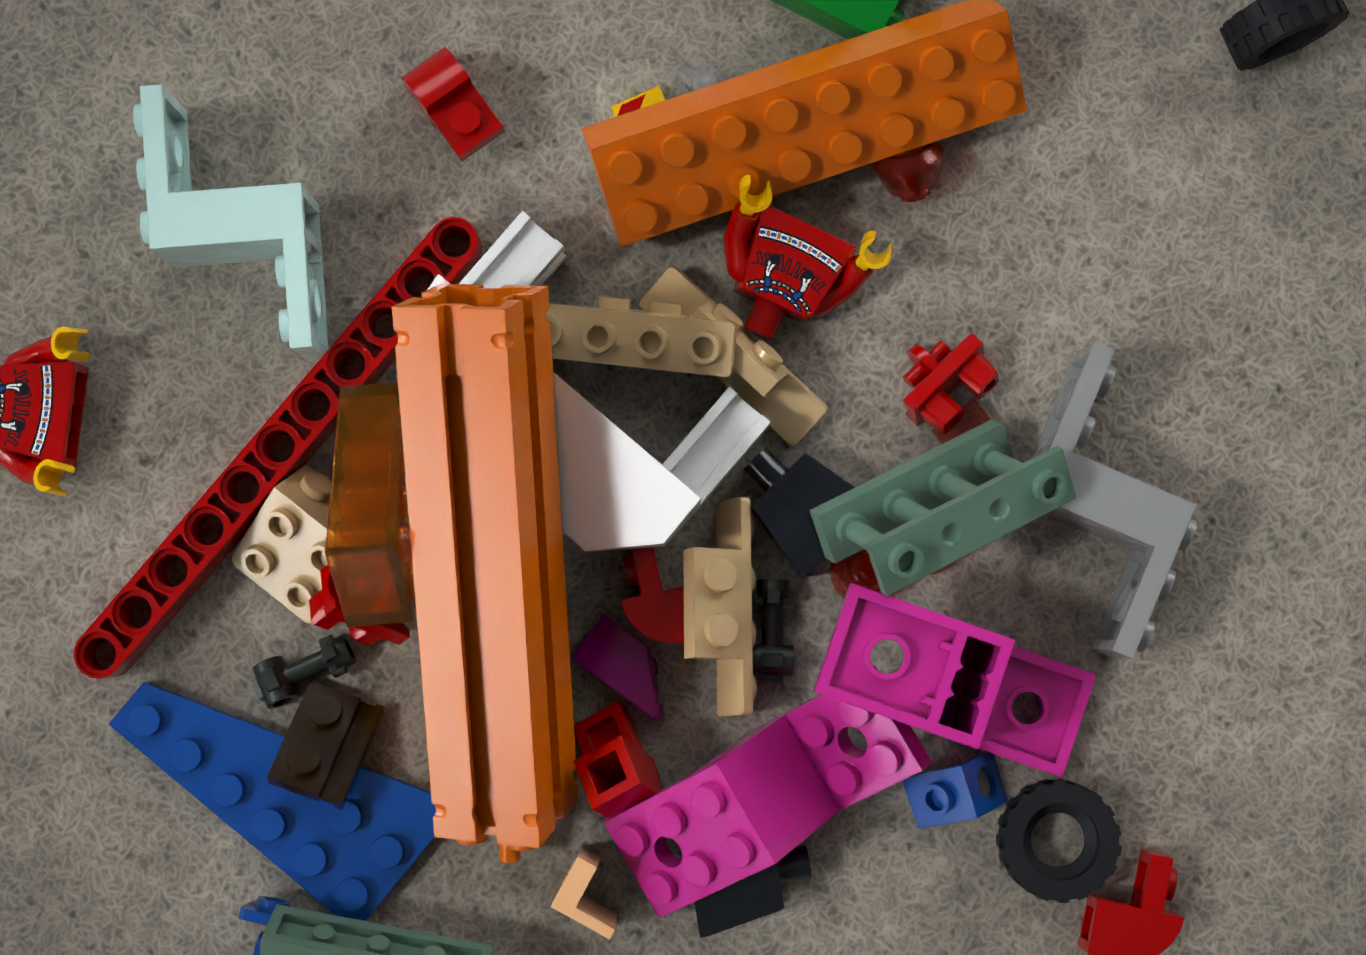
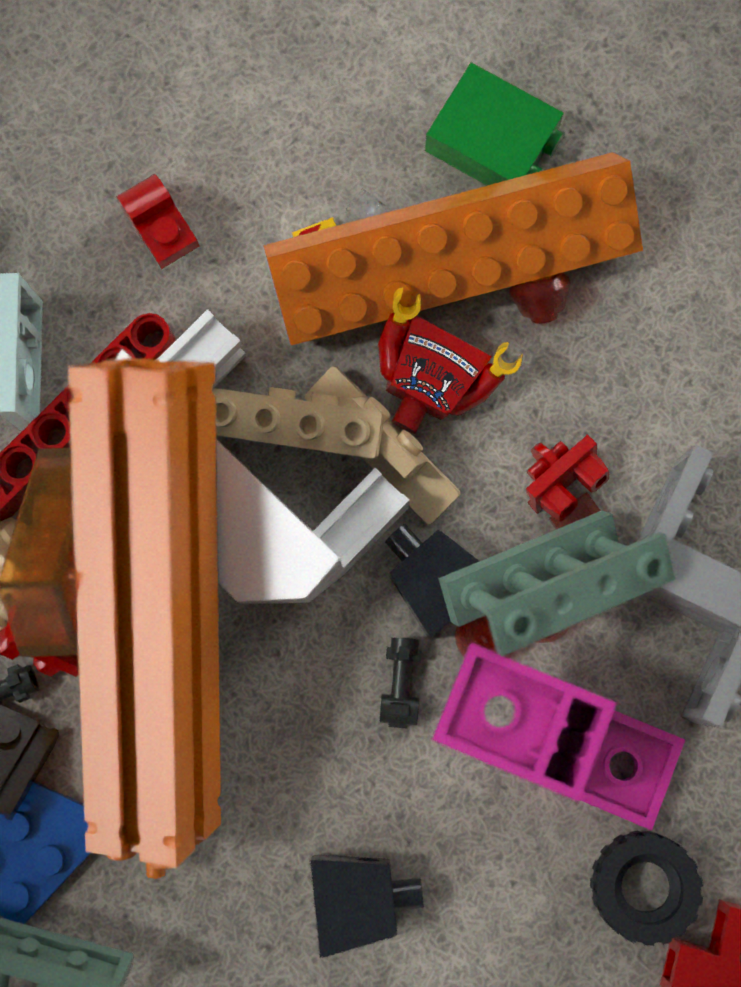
camera: 10 degrees right, 5 degrees down
(571, 901) = (211, 921): light nougat panel -> none
(613, 762) = (255, 796): red brick -> none
(622, 664) = (269, 706): magenta slope -> none
(656, 611) = (306, 663): red brick -> none
(720, 606) = (356, 660): tan bracket -> none
(760, 799) = (381, 835): dark pink bracket -> none
(954, 792) = (554, 838): blue bracket -> none

